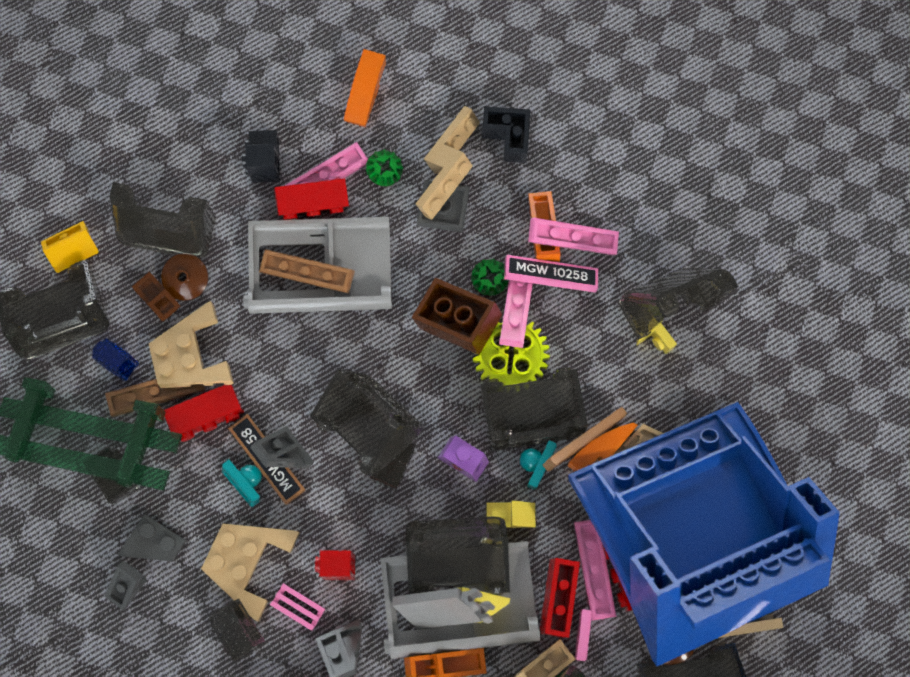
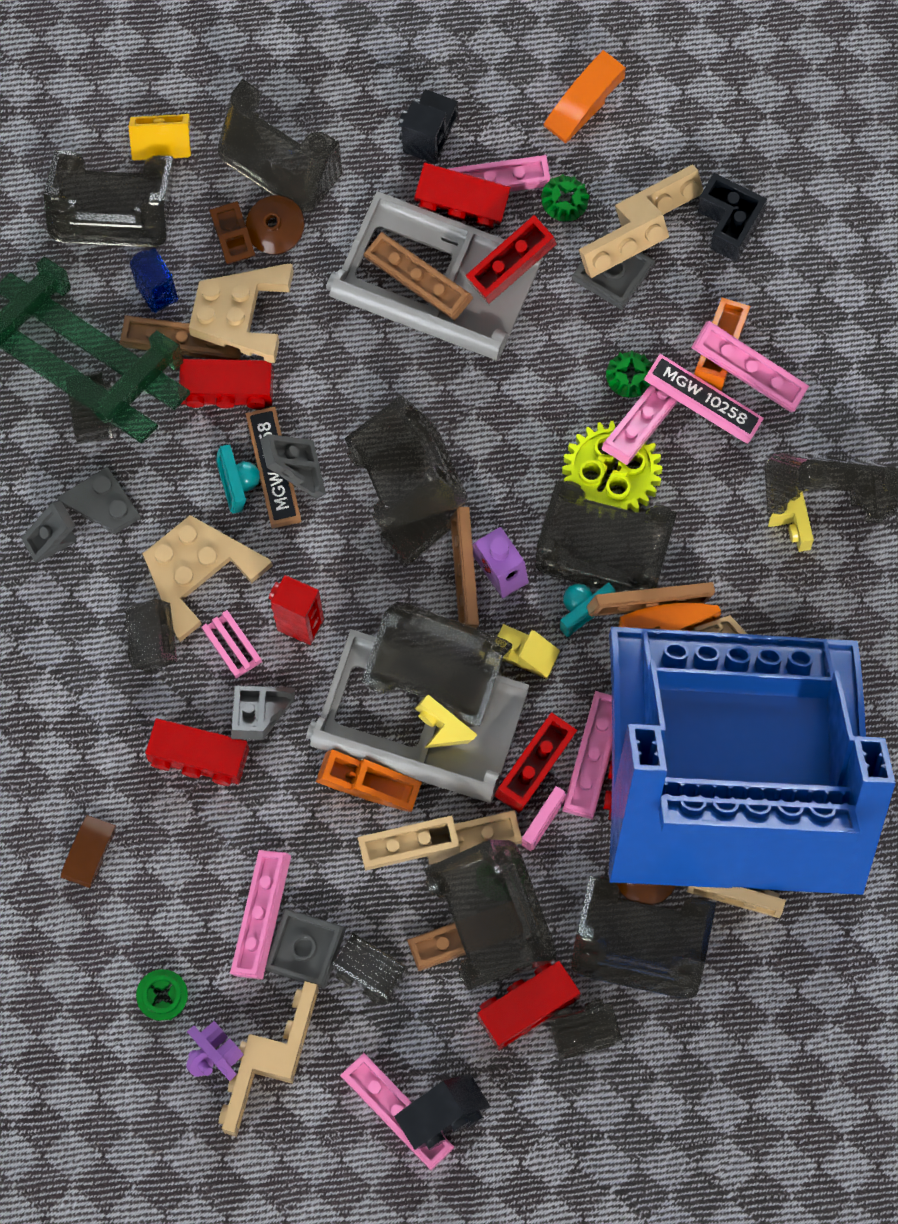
camera: 30 degrees right, 5 degrees down
(370, 231) = (511, 259): none -> red brick
(441, 476) = (464, 567): none -> medium nougat tile
(443, 608) = (394, 707): light grey tile -> none
(457, 316) = (567, 397): reddish brown brick -> none

